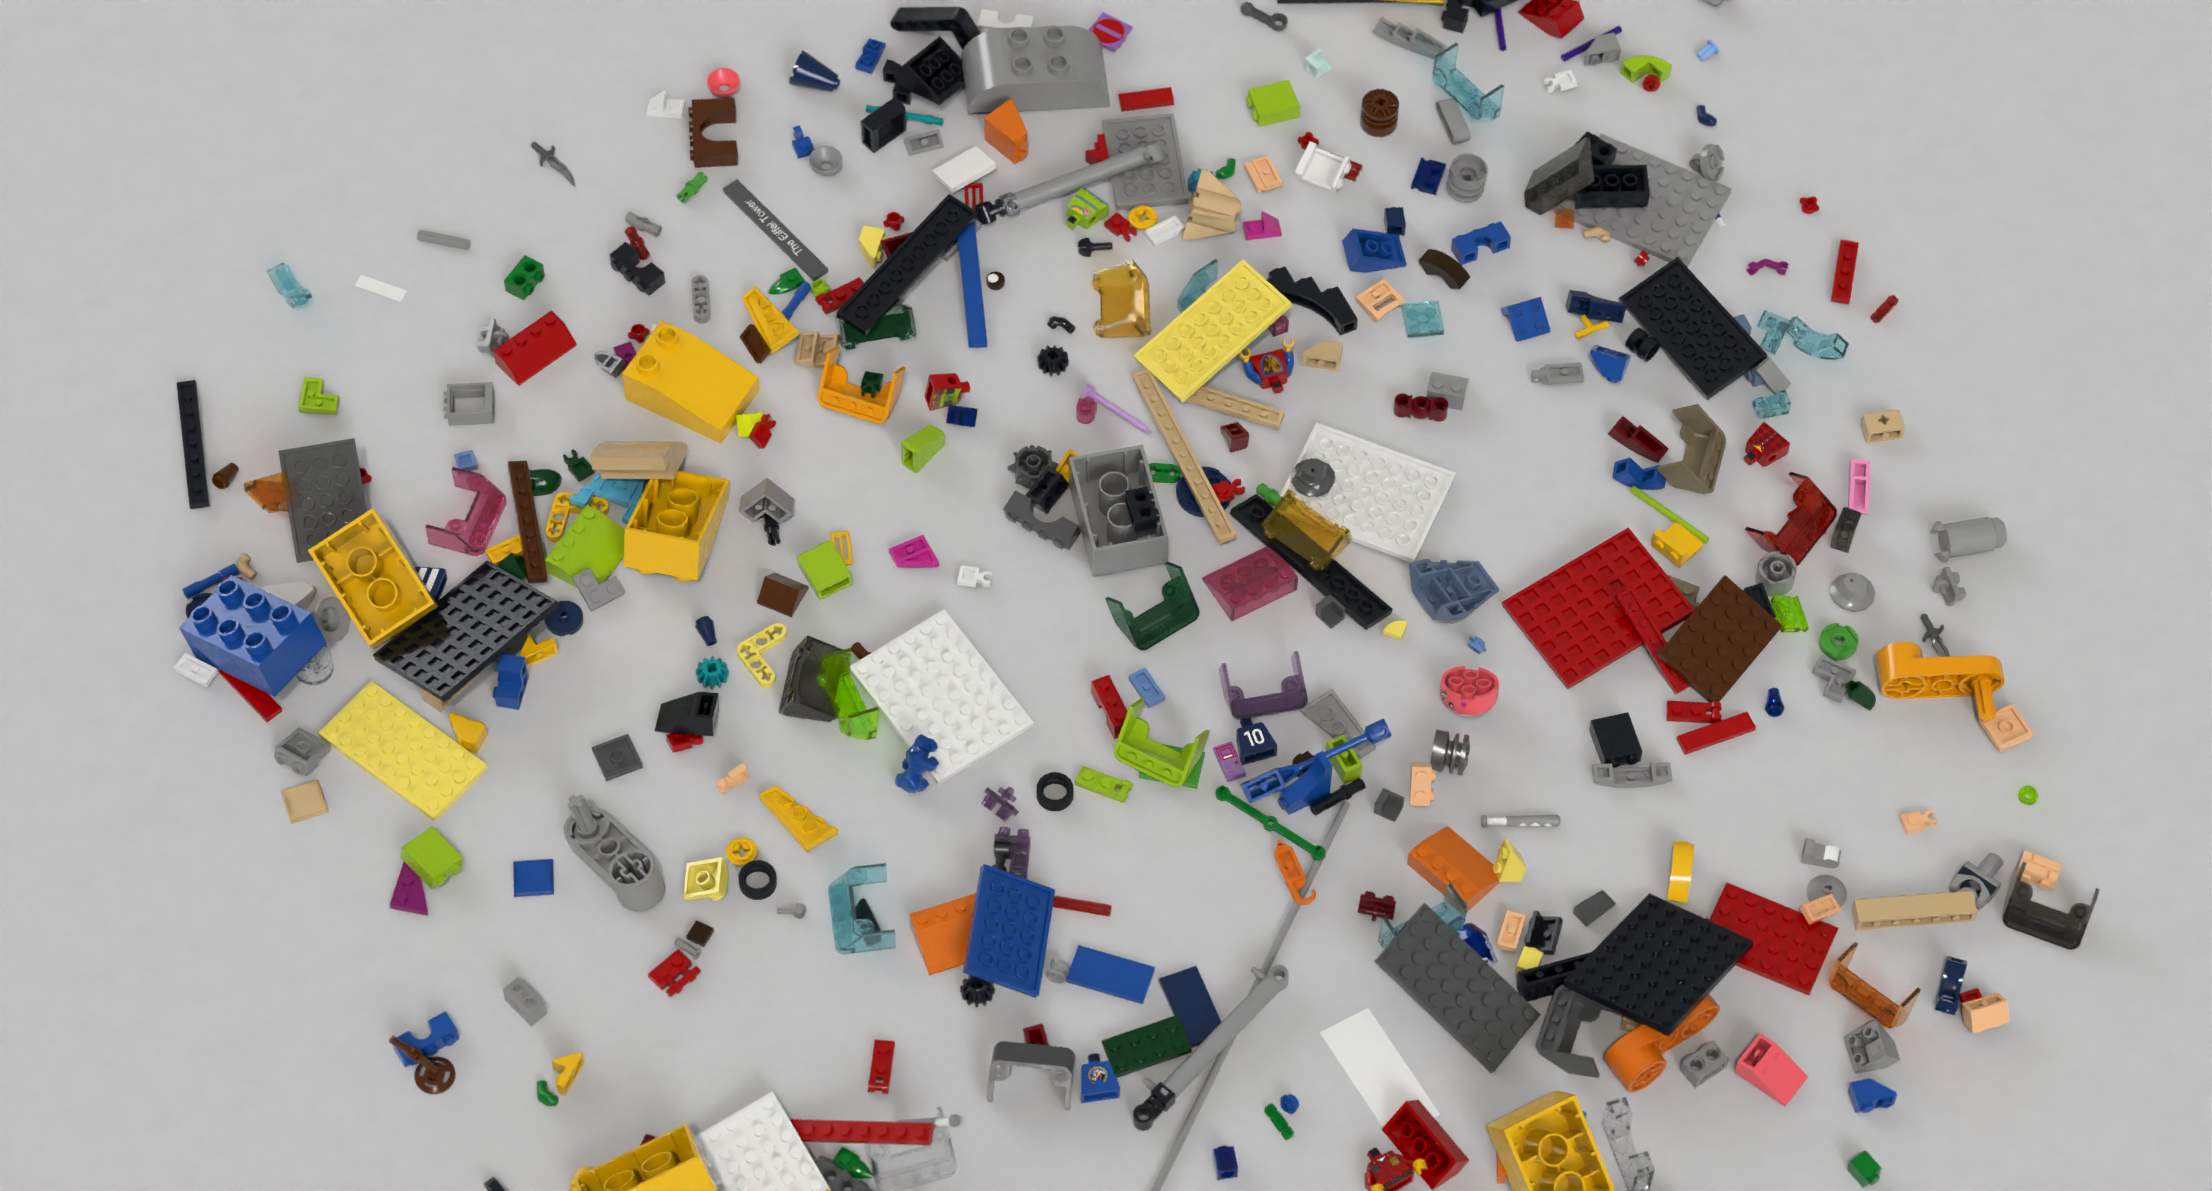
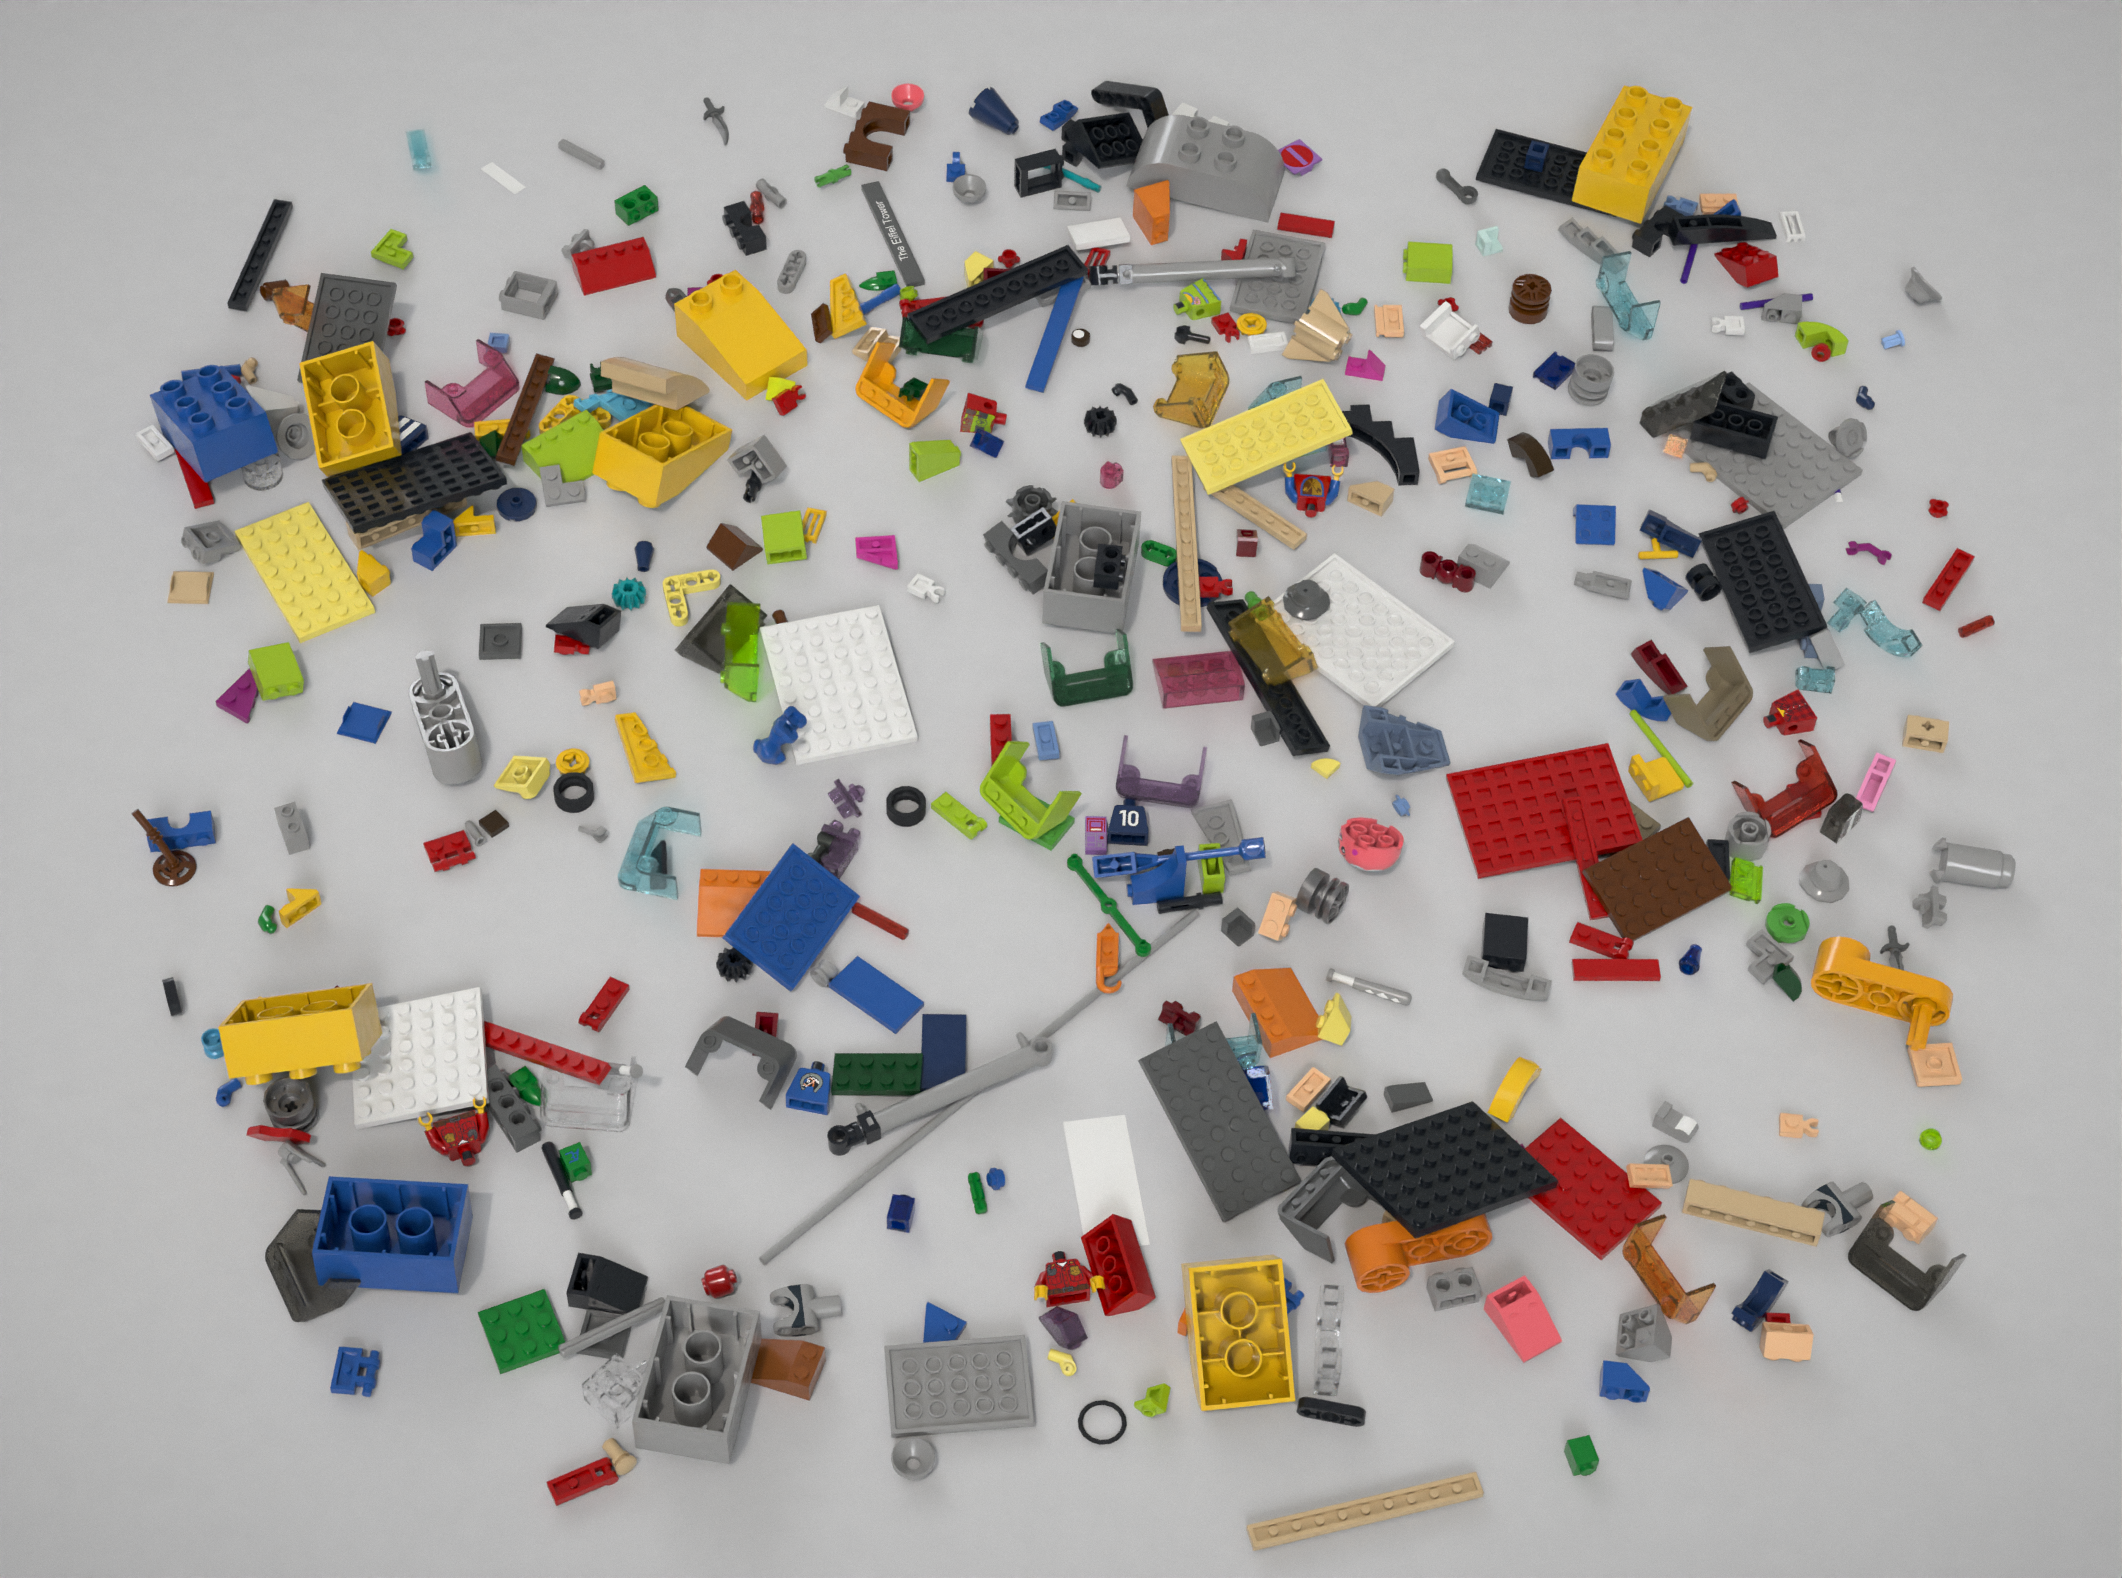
camera: 20 degrees right, 5 degrees down
(1089, 392) = (1123, 459): lavender piece -> none

